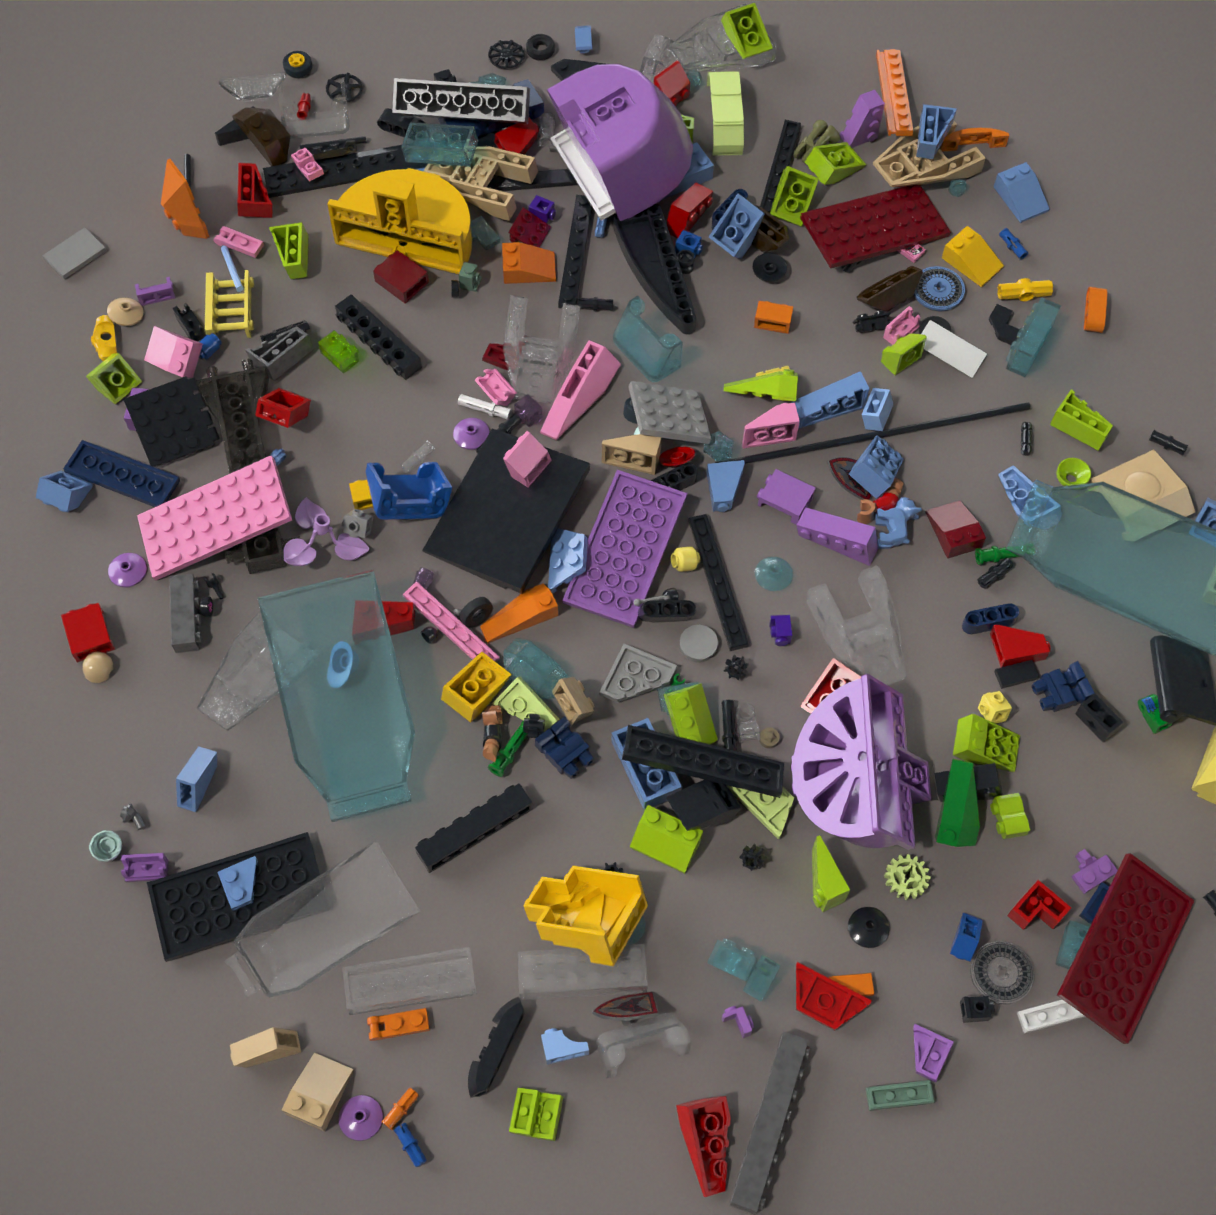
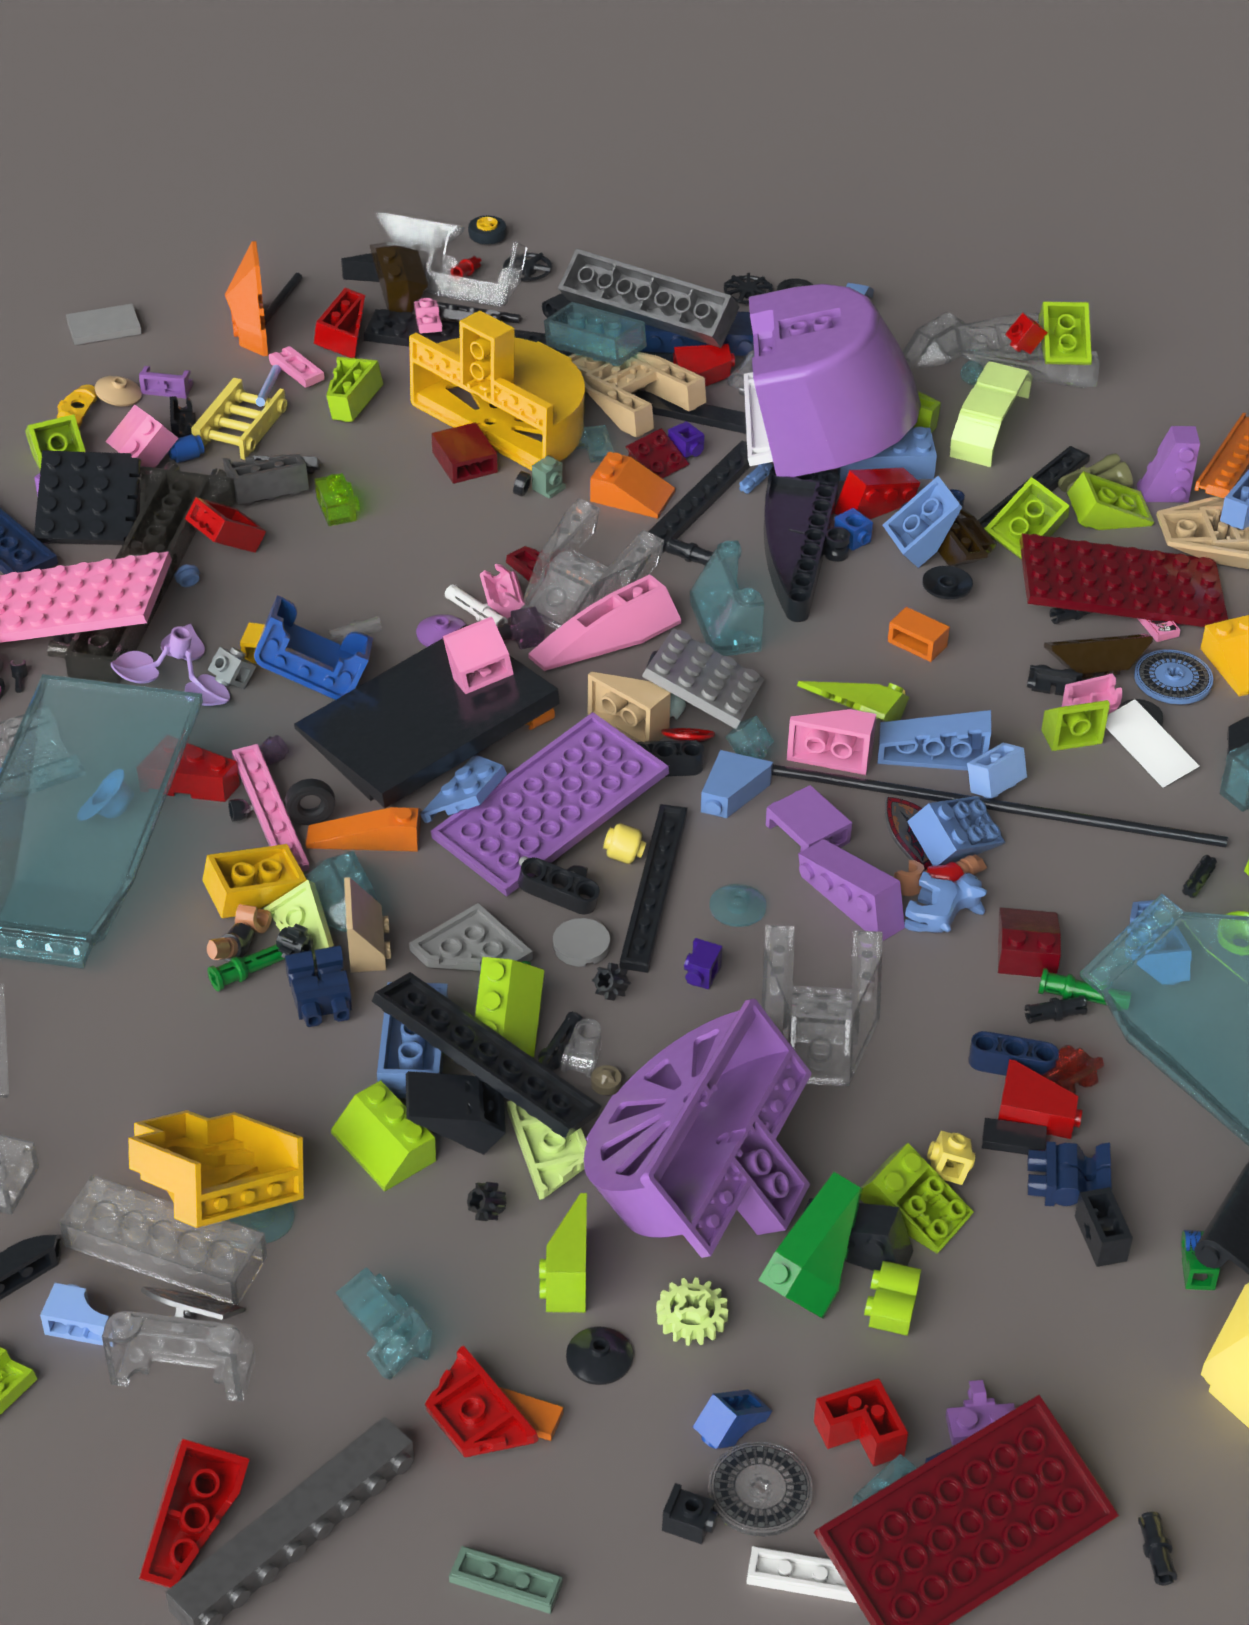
camera: 25 degrees right, 20 degrees down
(378, 337) = (393, 501): black brick -> none
(474, 827) = (141, 1028): black brick -> none
(673, 82) = (936, 366): red slope -> none
(723, 41) = (1025, 334): none -> red brick
(744, 1022) = (335, 1375): medium lavender bracket -> none
(930, 1052) = (584, 1542): medium lavender wing -> none
(1029, 615) = (1074, 1067): none -> clear red hips

